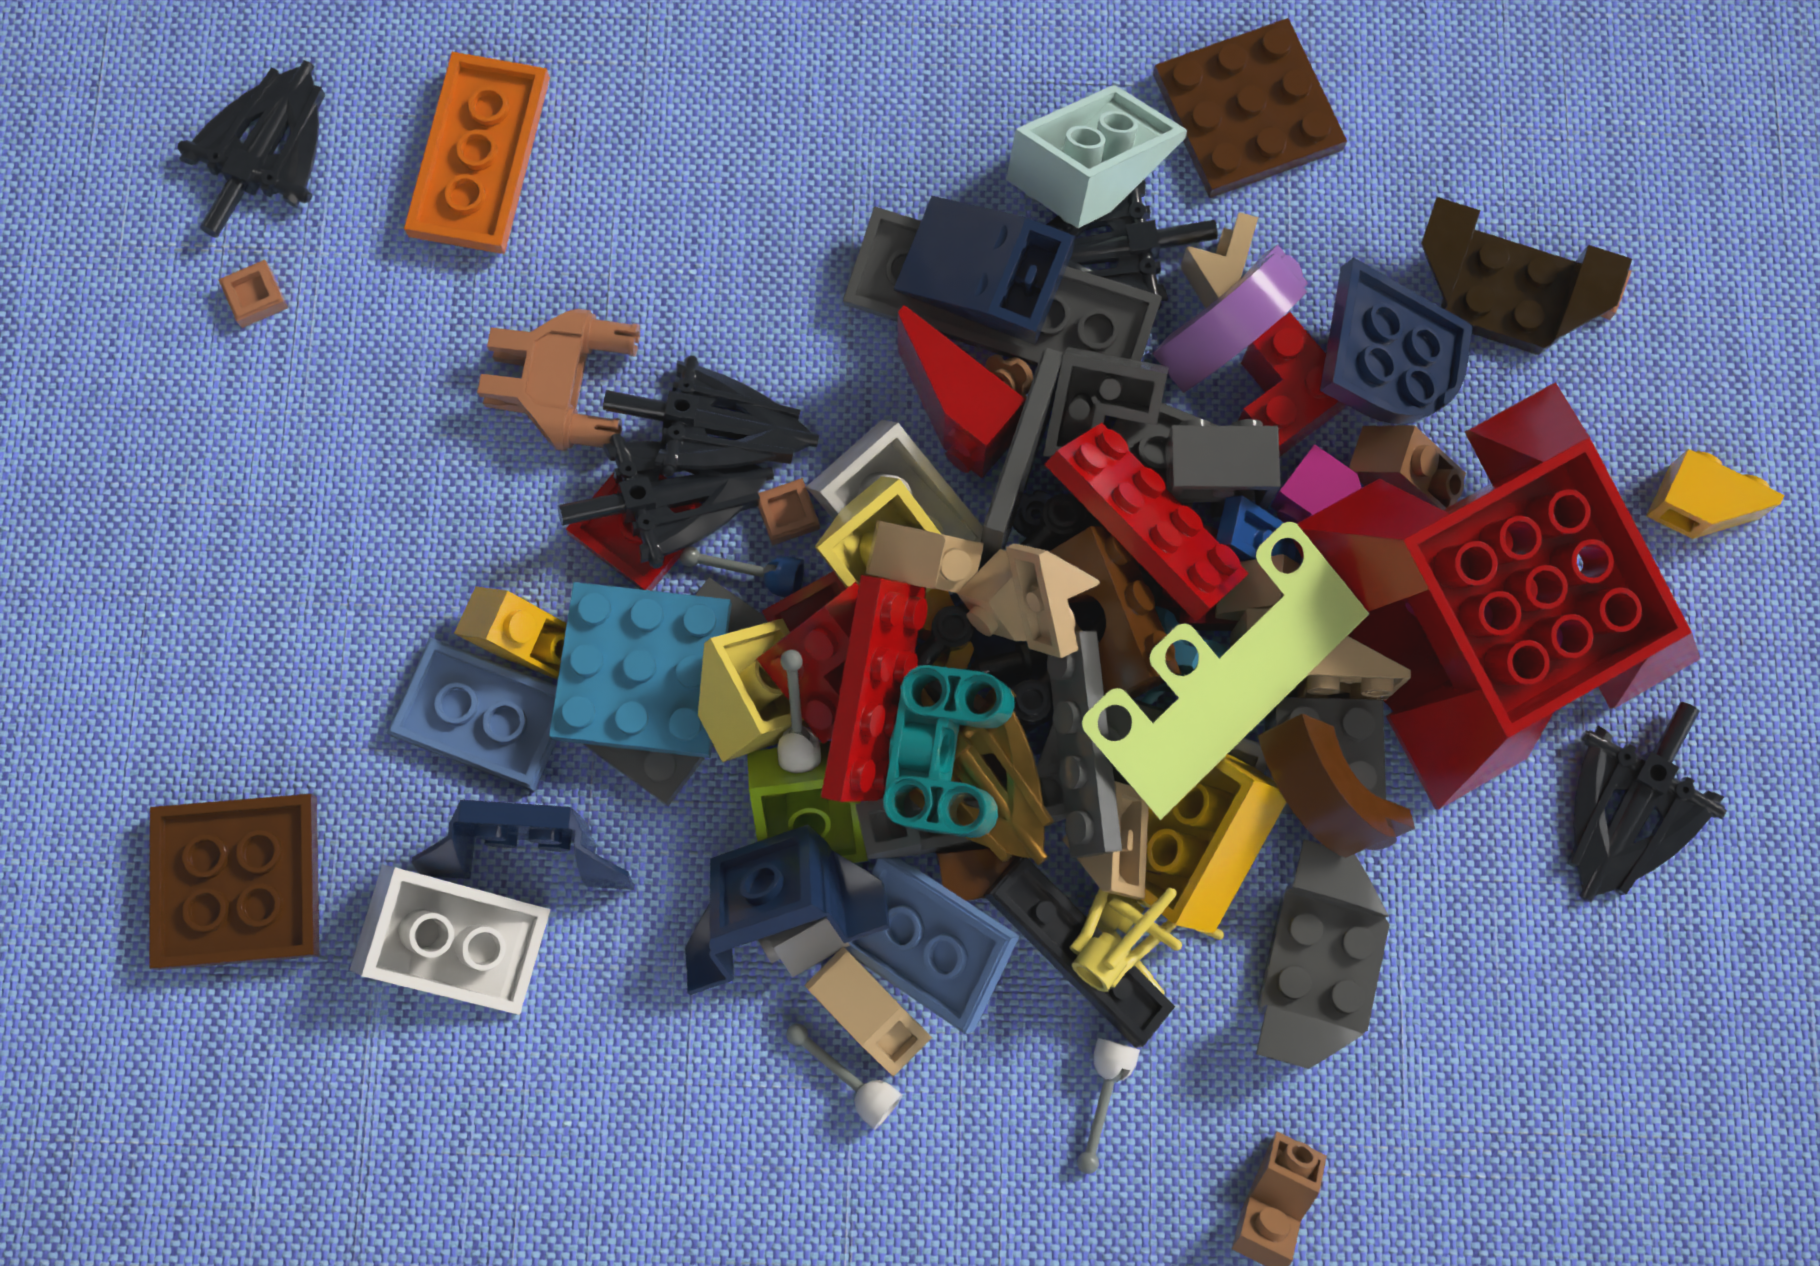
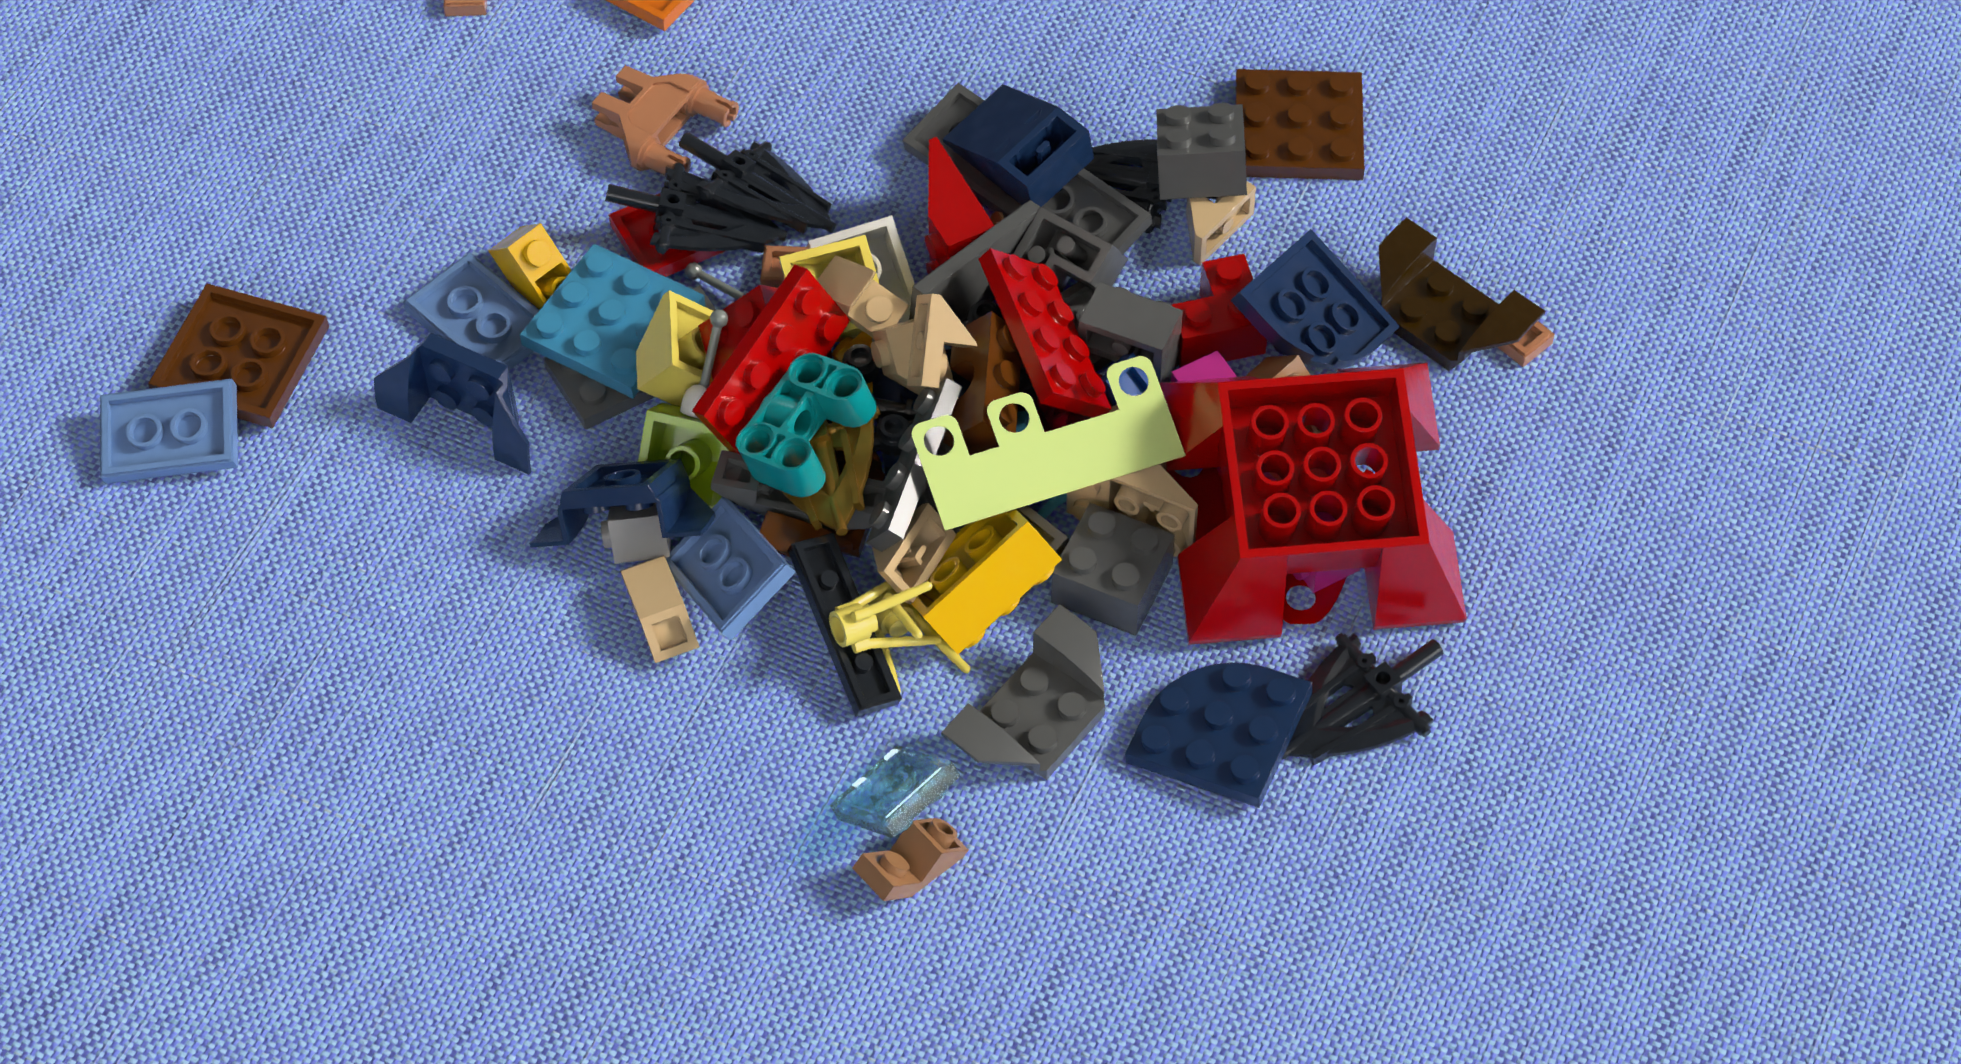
camera: 25 degrees right, 20 degrees down
(204, 1019) = (168, 431): none -> medium blue tile
(449, 940) = (373, 445): white slope -> none
(873, 1099) = (631, 672): hinge -> none
(1090, 153) = (1124, 100): light aqua slope -> none
(1114, 1064) = (832, 716): hinge -> none
(1189, 201) = (1201, 151): none -> dark grey brick
(1233, 319) = (1182, 245): medium lavender arch -> none
(1233, 1137) = (895, 791): none -> clear light blue plate
(1326, 792) = (1088, 571): reddish brown arch -> none
(1521, 900) = (1221, 728): none -> dark blue plate
(1706, 497) = (1532, 509): yellow slope -> none

